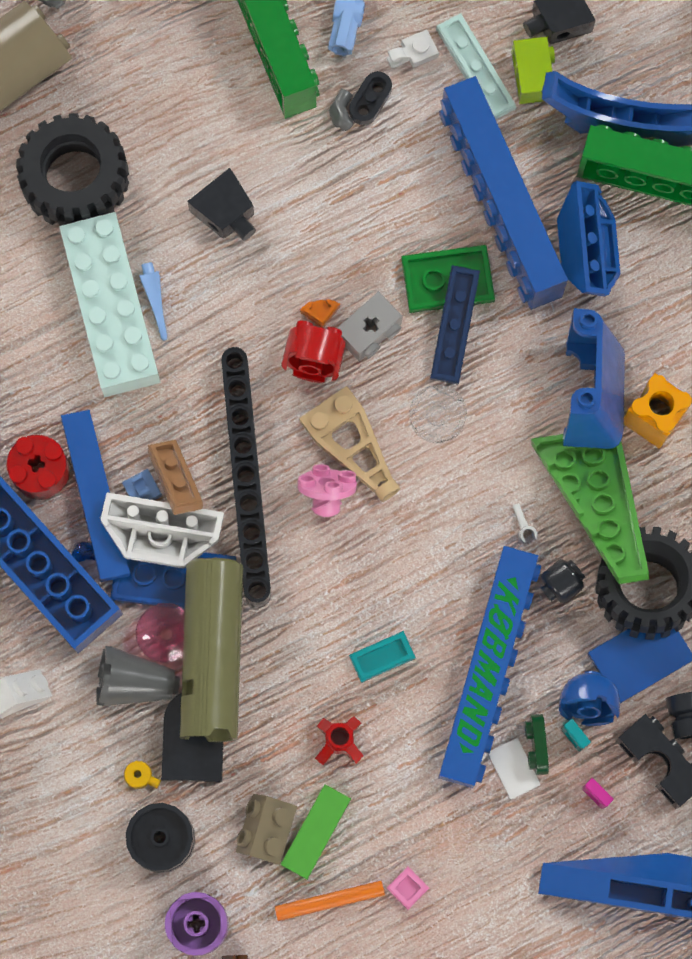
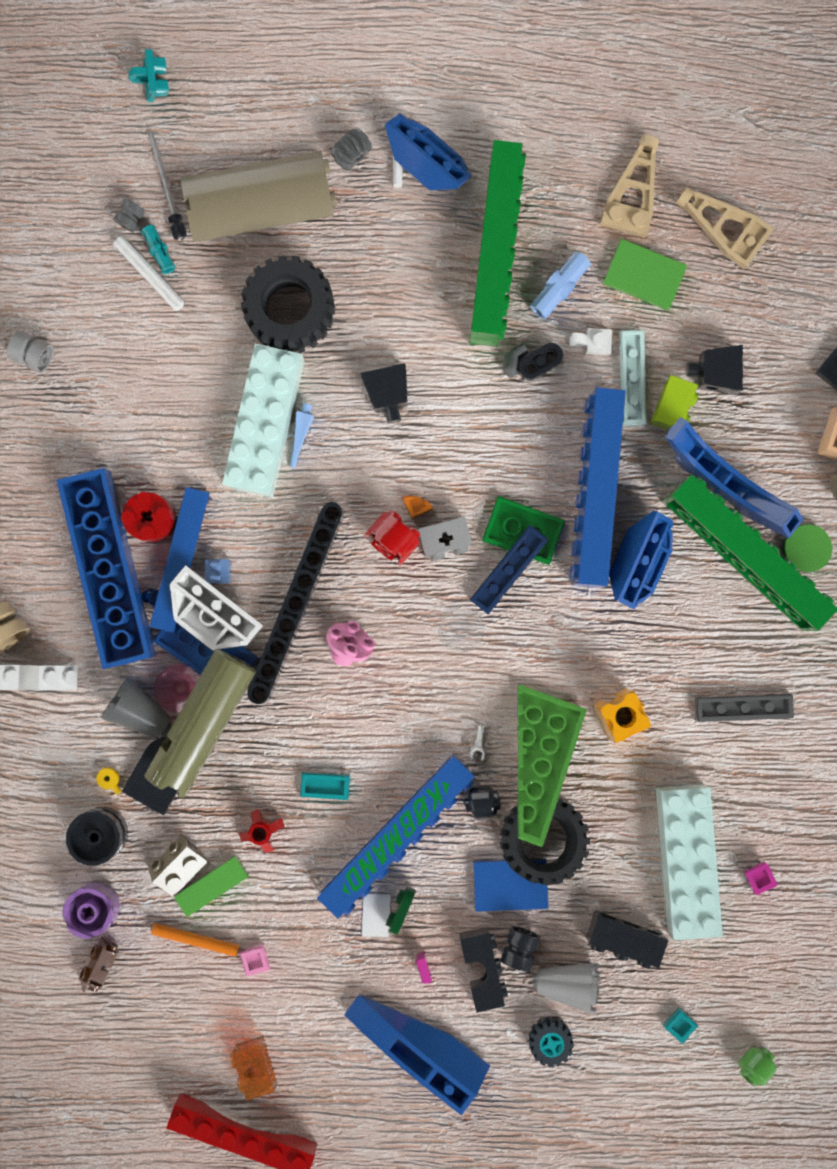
camera: 30 degrees right, 10 degrees up
(175, 477) = (242, 578): medium nougat tile -> none
(334, 414) = (384, 589): tan plate -> none
(575, 735) = (431, 918): teal tile -> none
(590, 698) = (456, 898): blue cylinder -> none
(596, 412) = (574, 700): blue windscreen -> none

